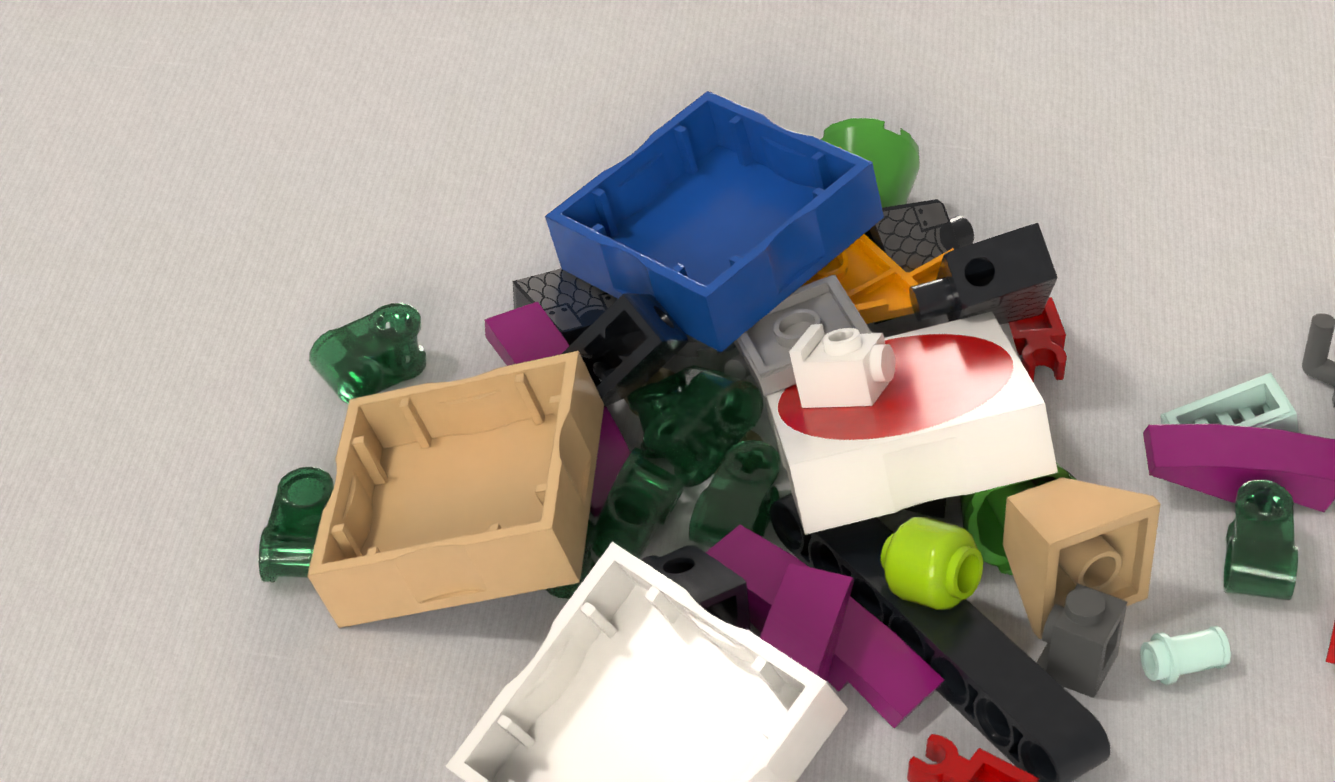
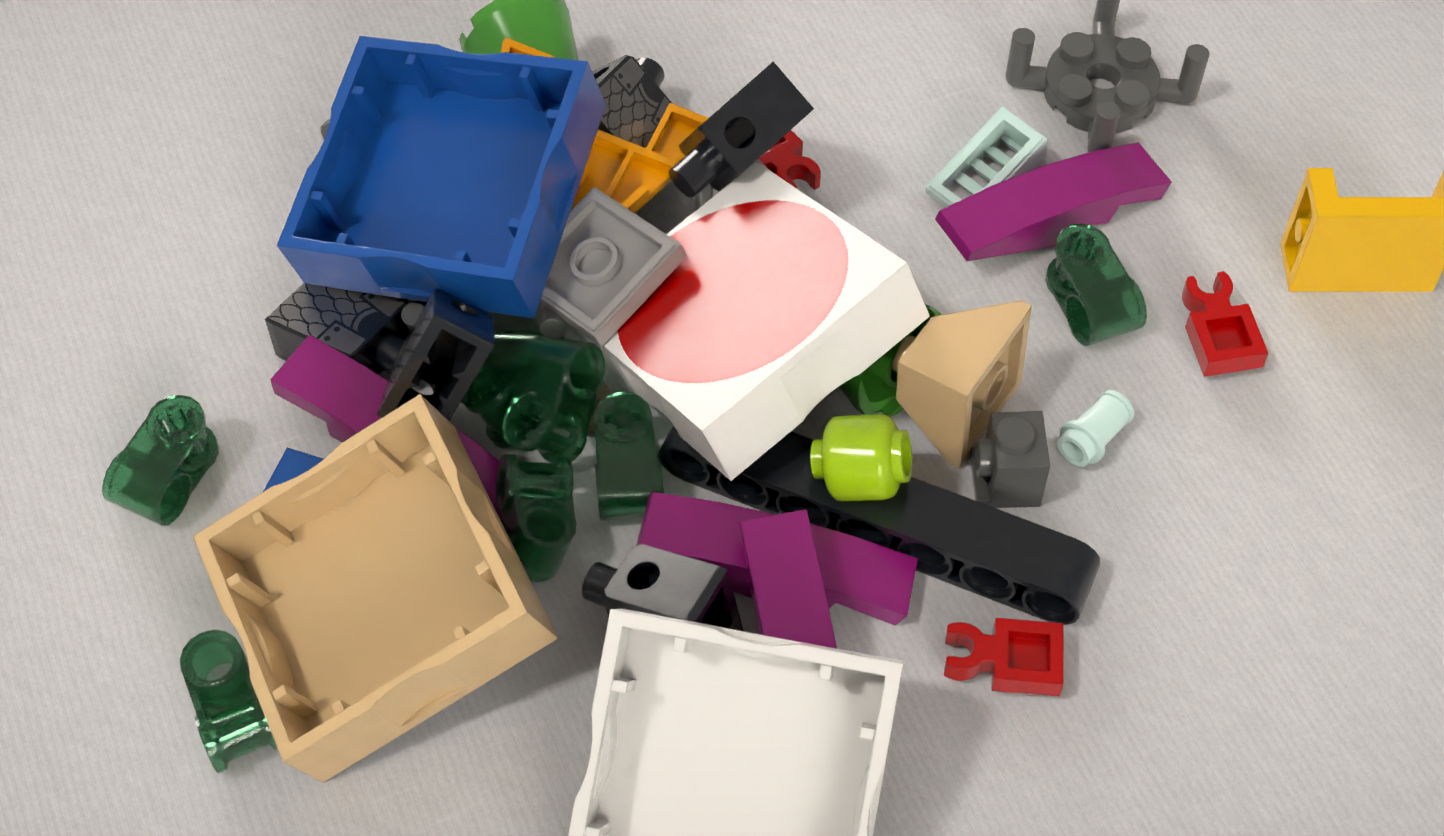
camera: 30 degrees left, 15 degrees up
(841, 367) = (679, 295): white brick -> none

